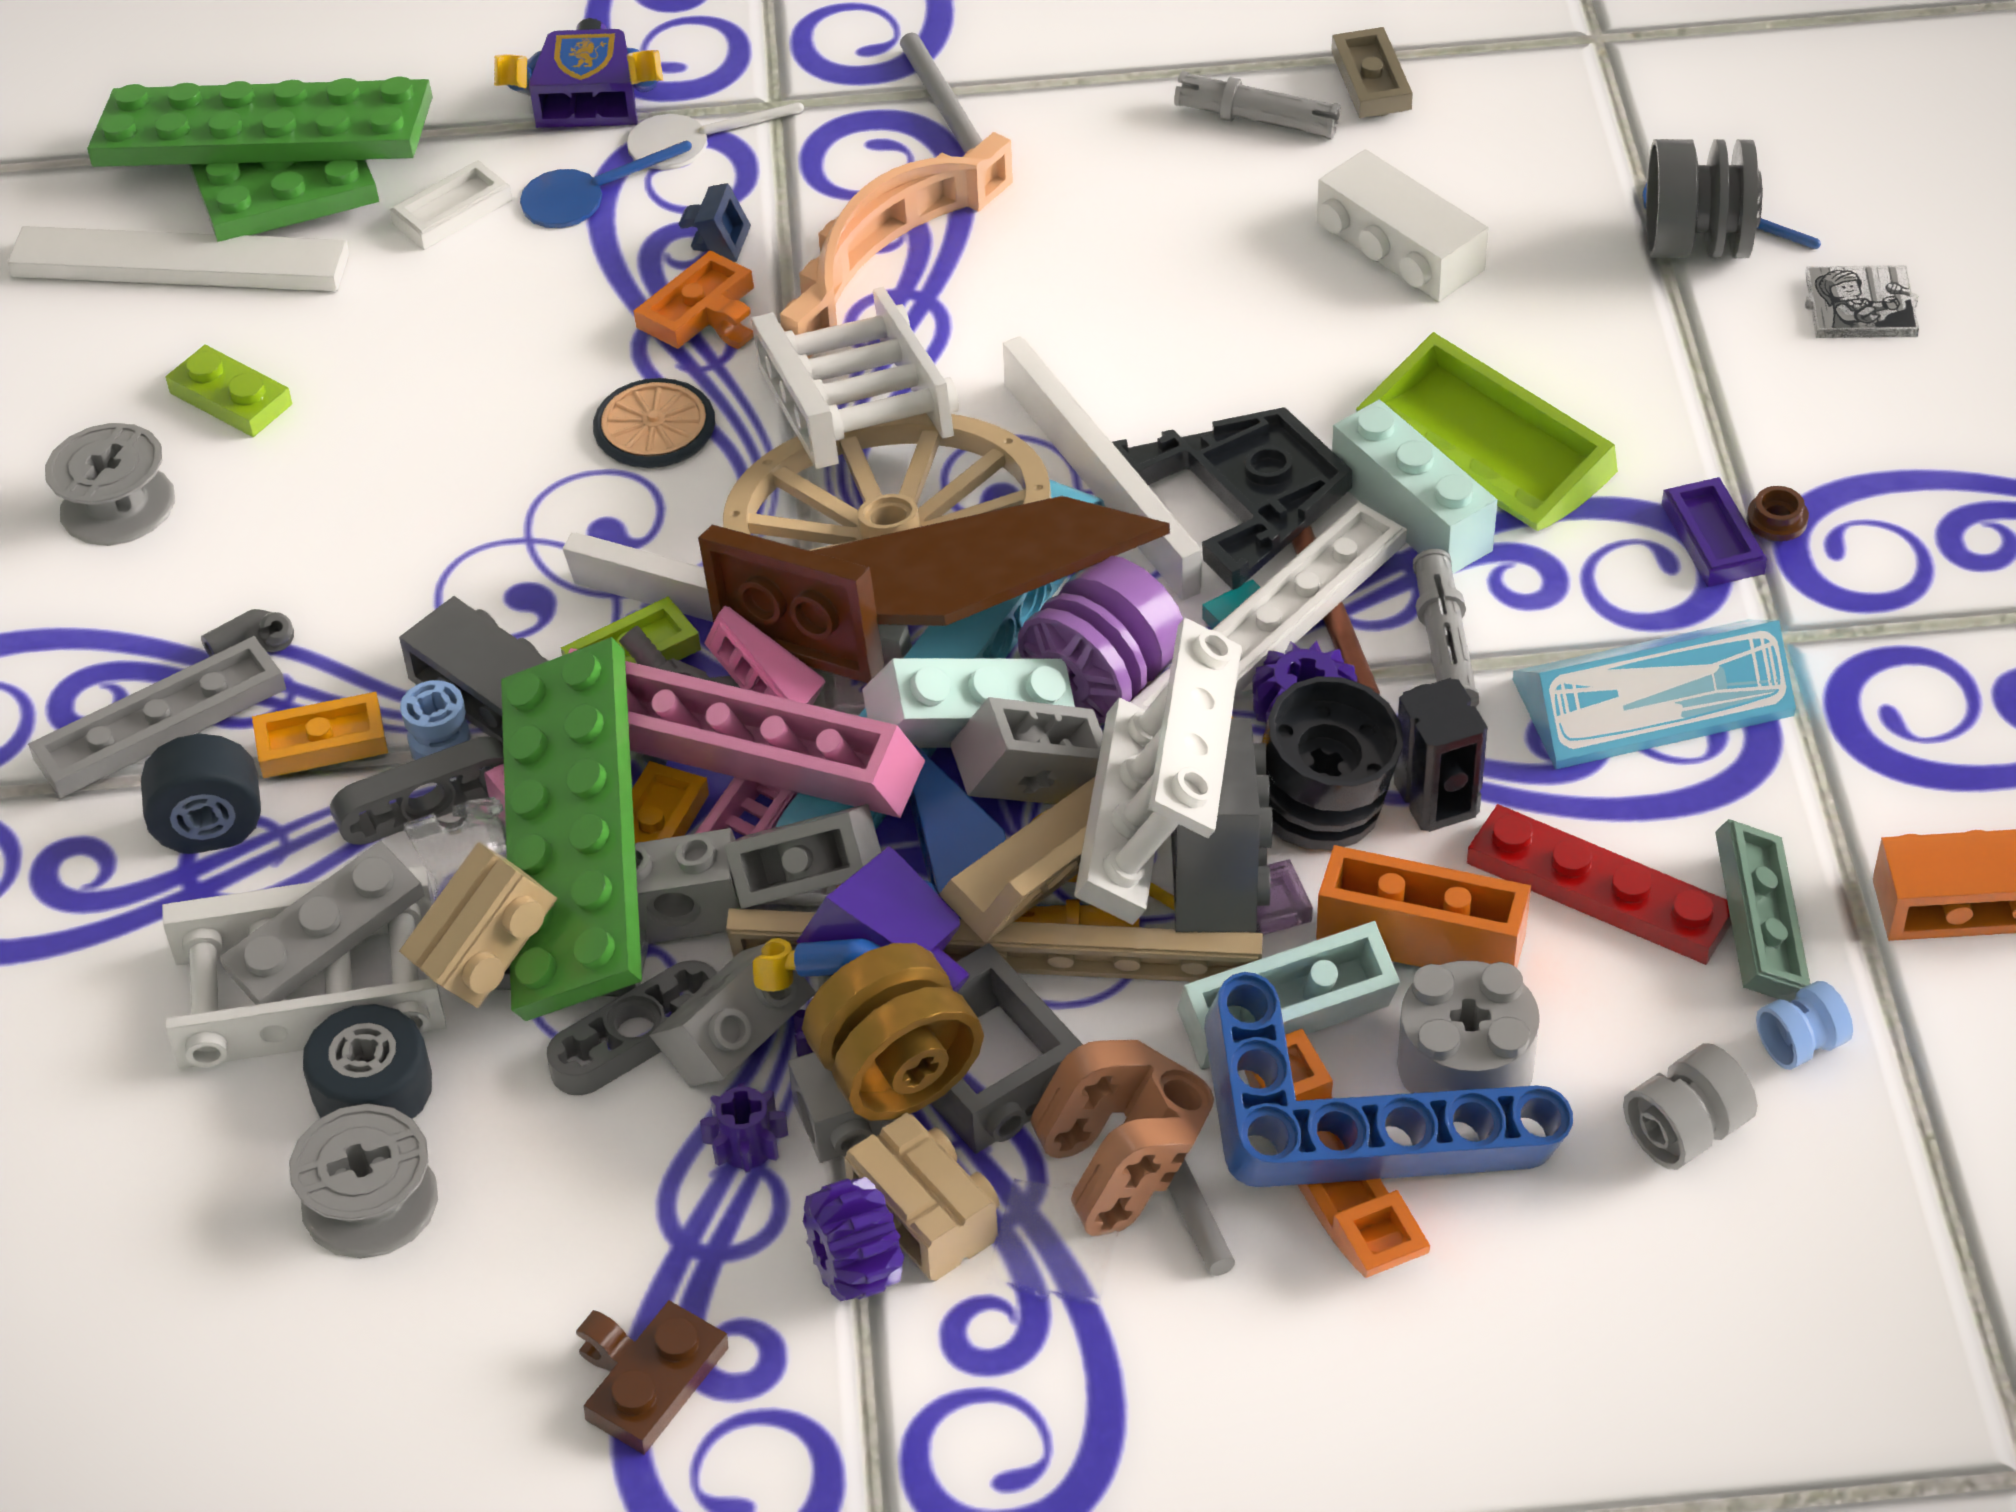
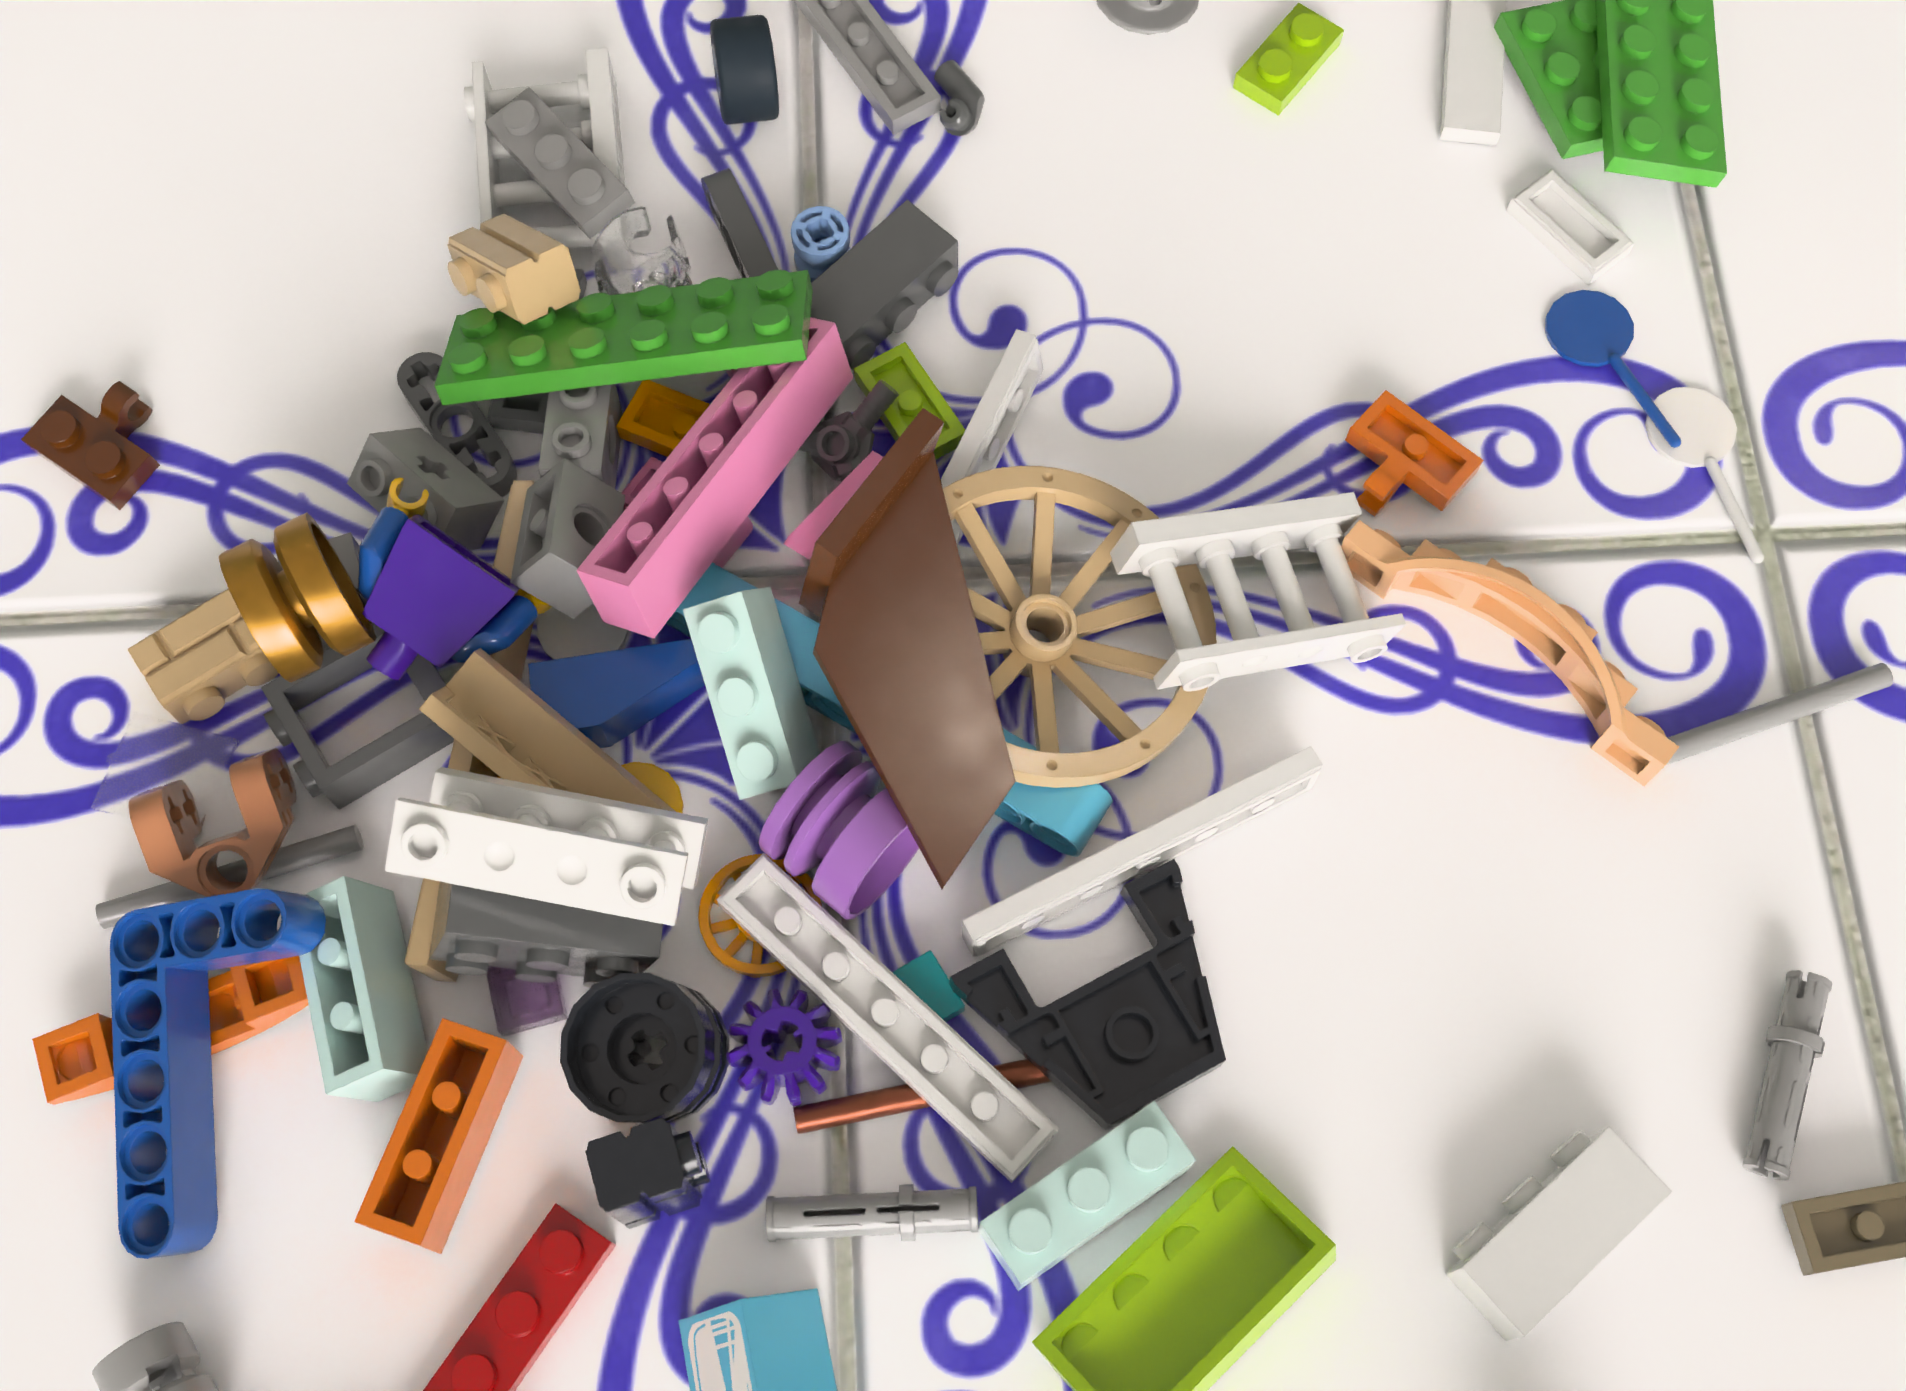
camera: 90 degrees right, 20 degrees up
(319, 735) = (824, 158): light orange plate -> none
(364, 1180) = (284, 218): light grey piece -> none
(367, 1058) = (419, 213): black wheel -> none
(582, 77) = (1771, 327): torso -> none
(654, 422) = (1241, 424): light nougat wheel -> none
(719, 222) = (1530, 470): dark blue tile -> none
(744, 1127) = (319, 499): dark purple gear -> none
(853, 1239) = (153, 587): dark purple gear -> none
(1027, 750) = (689, 751): light grey brick -> none
(1467, 1028) = (248, 1161): light grey brick -> none

